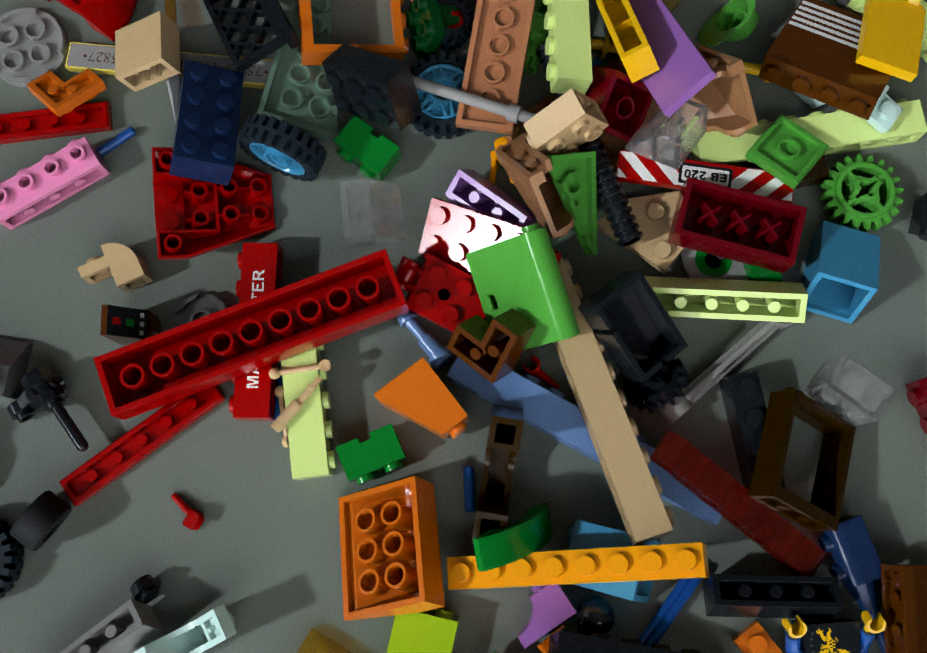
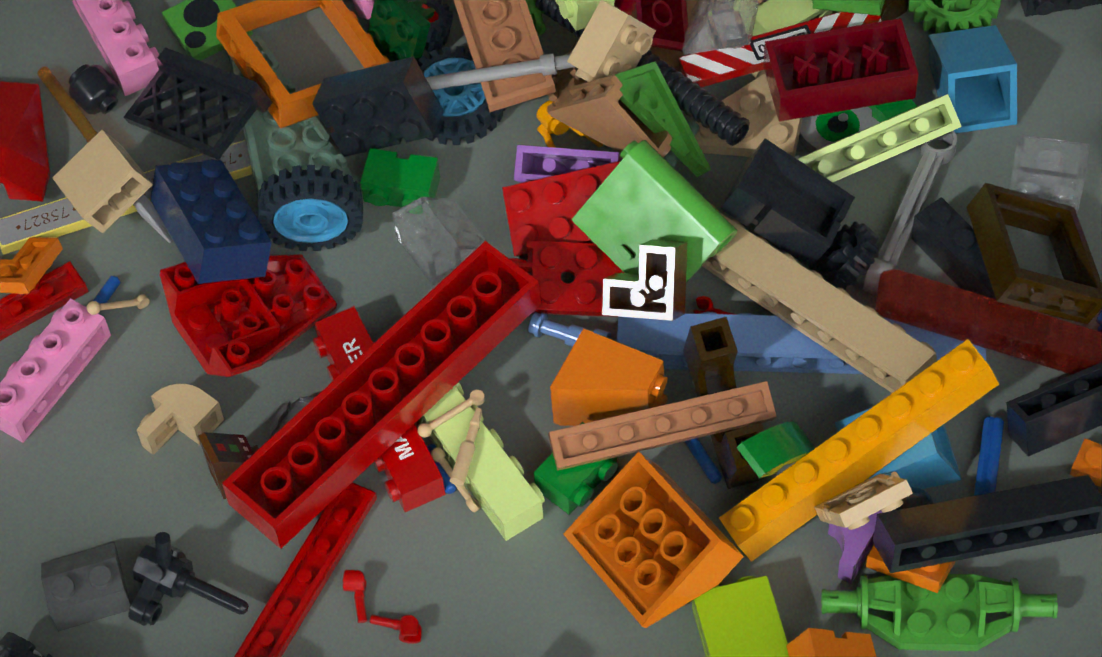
camera: 25 degrees left, 20 degrees down
(94, 154) = (141, 302): none -> tan hinge
(175, 462) = (355, 582): none -> red hand
(443, 463) = (662, 425): none -> nougat plate
(555, 613) = (856, 504): none -> tan plate

